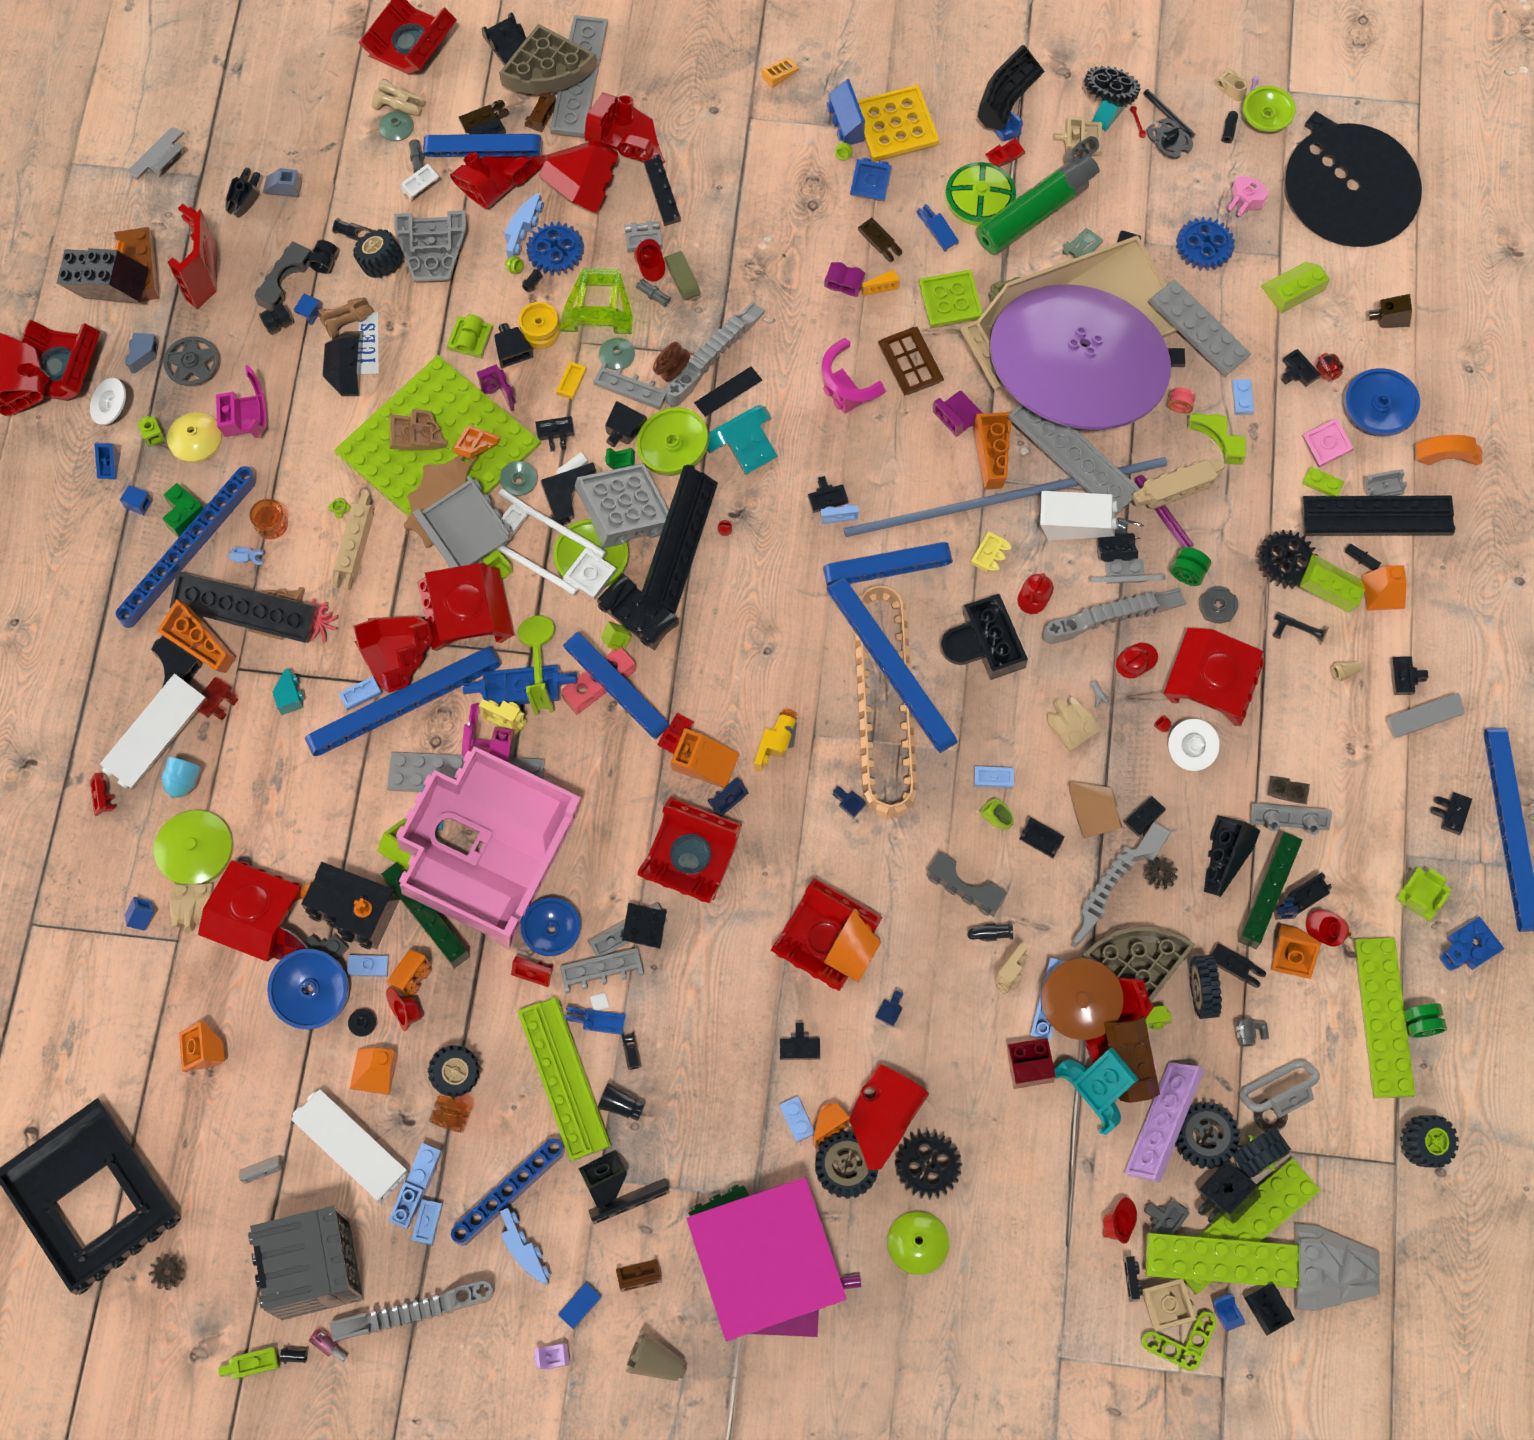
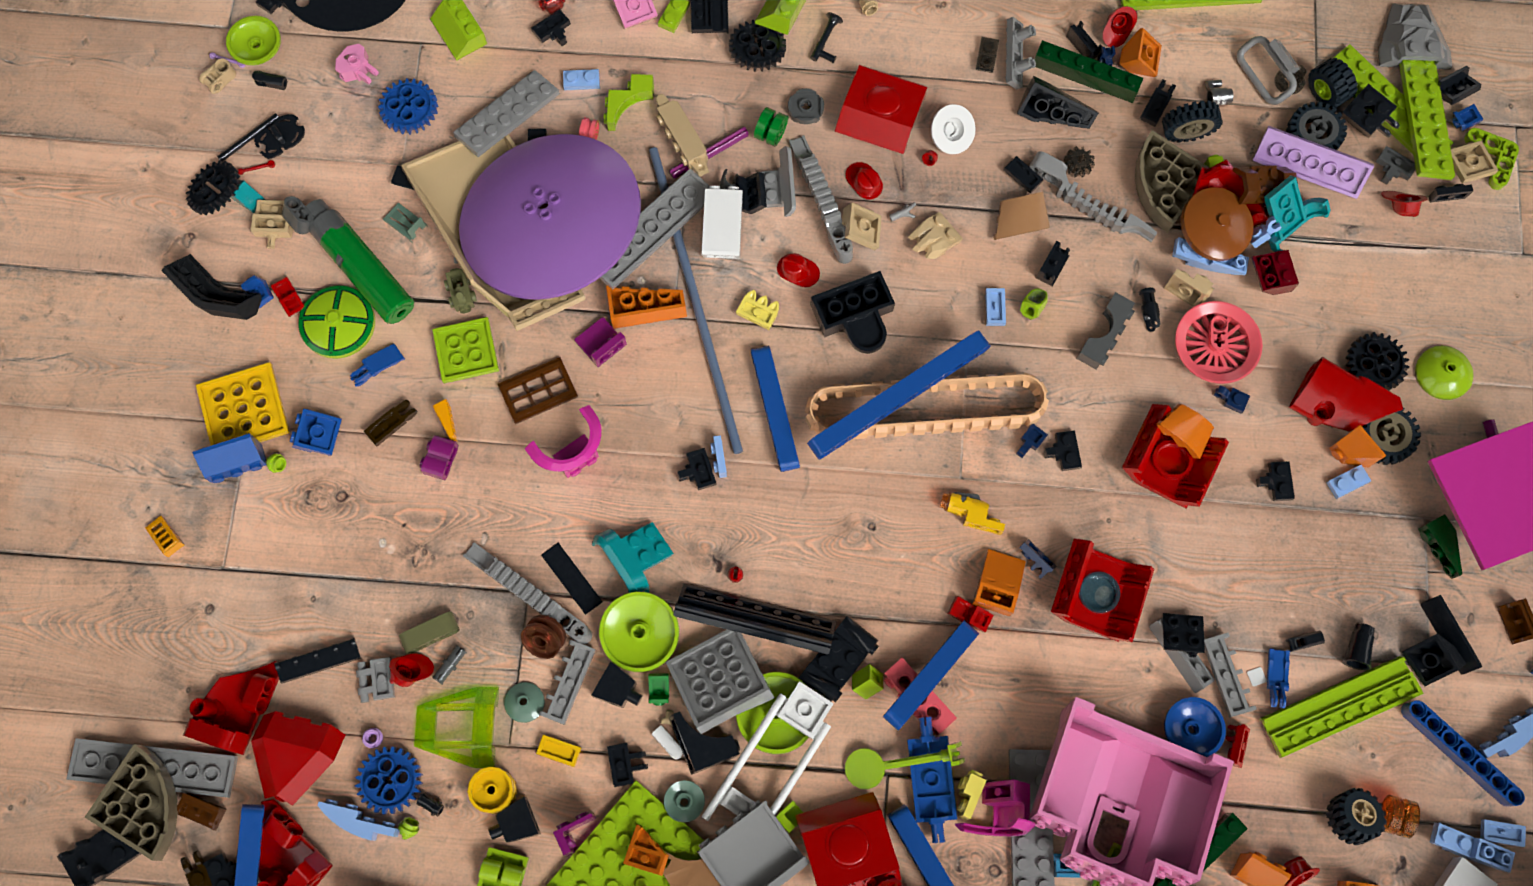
camera: 95 degrees left, 5 degrees up
(593, 231) = (366, 738): none -> lavender plate
(838, 835) = (1065, 451): none -> black hinge
(917, 986) = (1209, 340): none -> coral piece
(1076, 1054) = (1262, 233): none -> light blue plate
(1079, 647) = (862, 225): none -> tan plate

